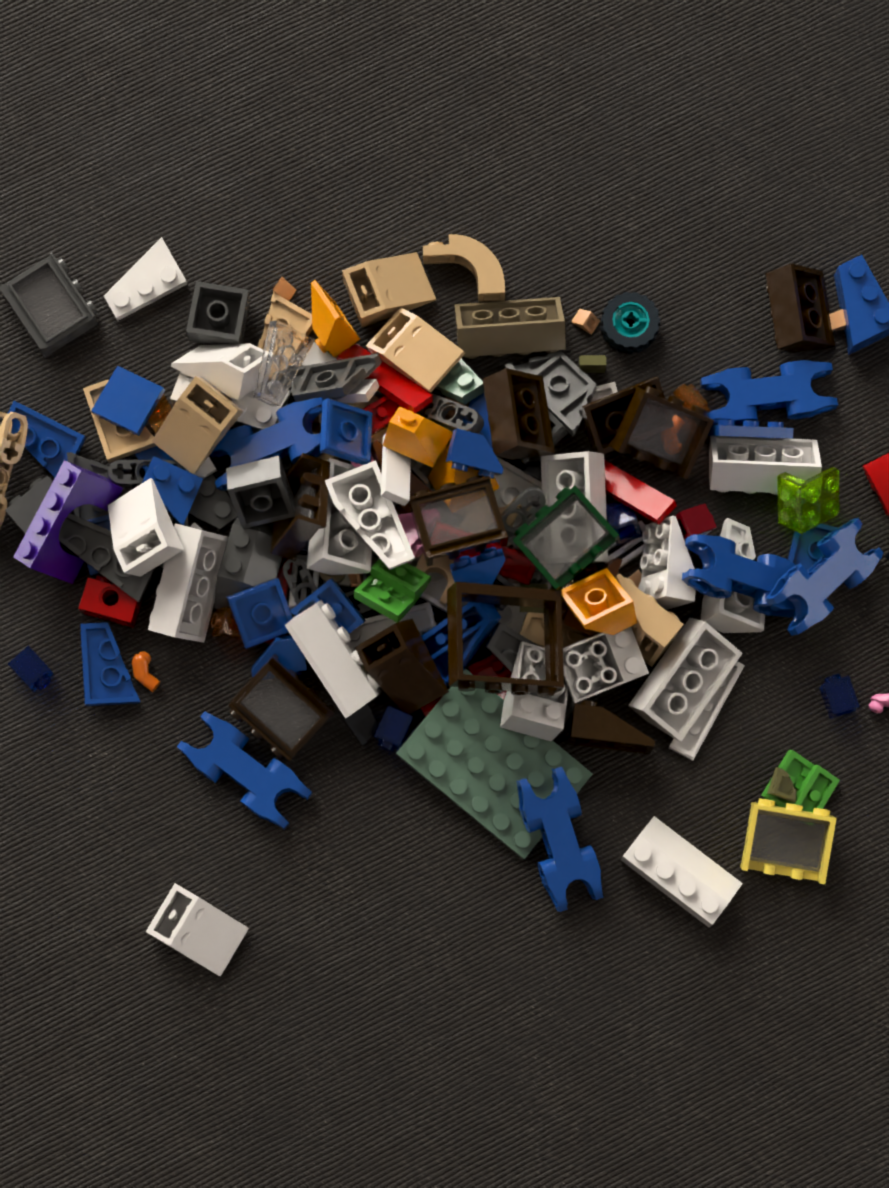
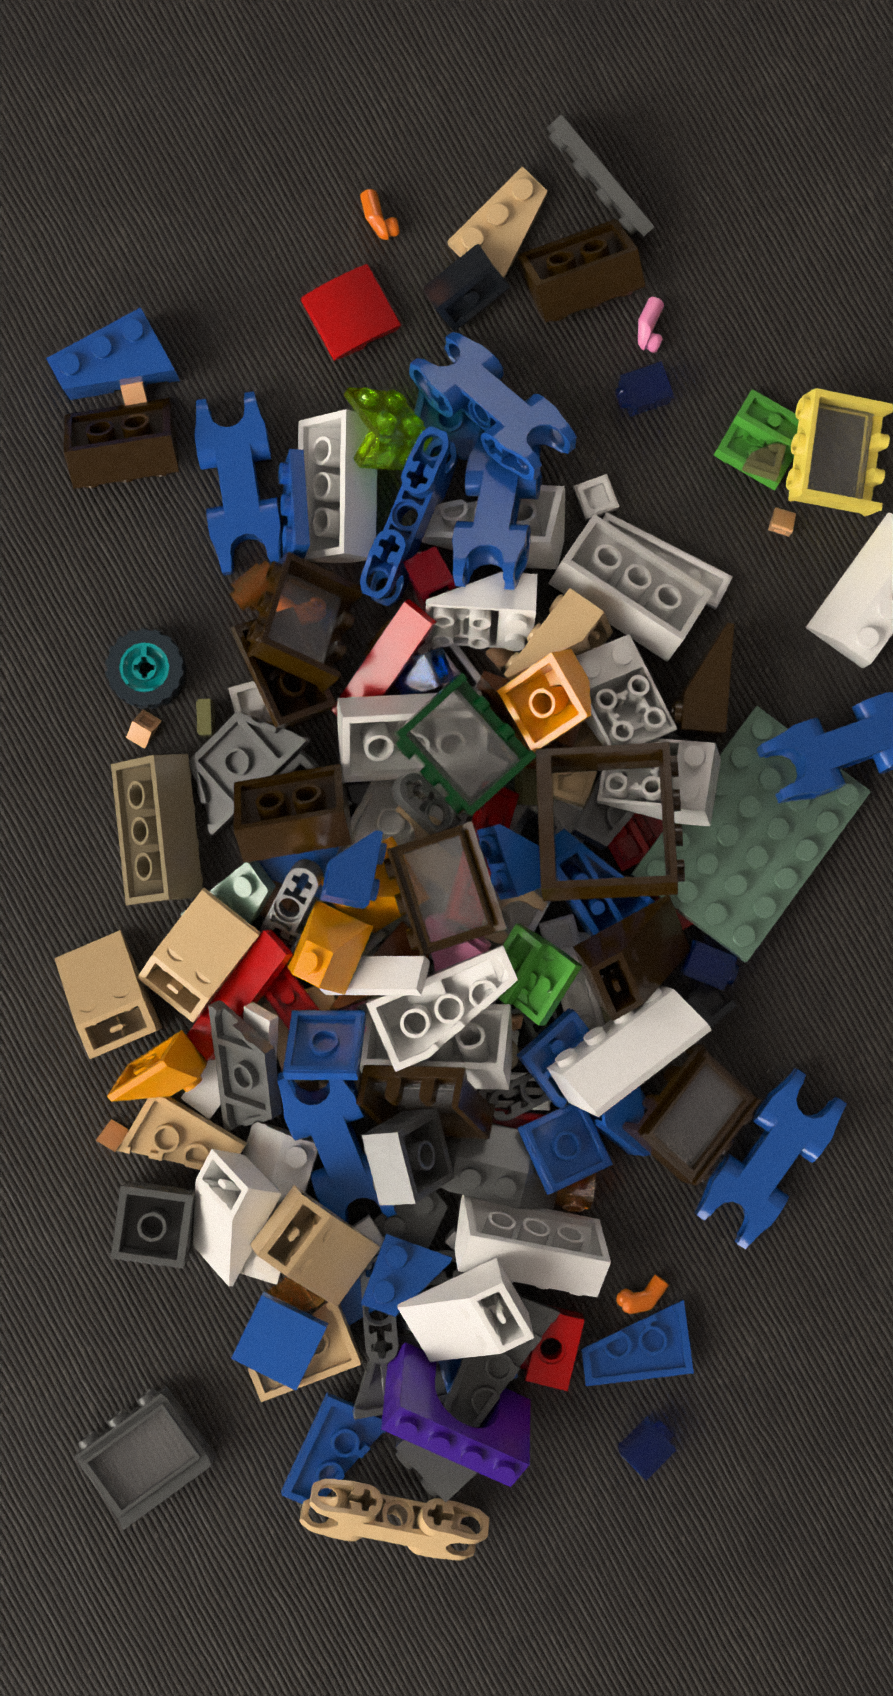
camera: 90 degrees left, 10 degrees up
(146, 282) = (106, 1324): white wing -> none
(281, 360) = (223, 1137): clear wing -> none
(474, 257) = (61, 877): tan arch -> none
(736, 800) = (782, 522): none -> light nougat piece
(756, 659) = (596, 497): none -> white tile
(762, 521) = (422, 489): none -> blue piece

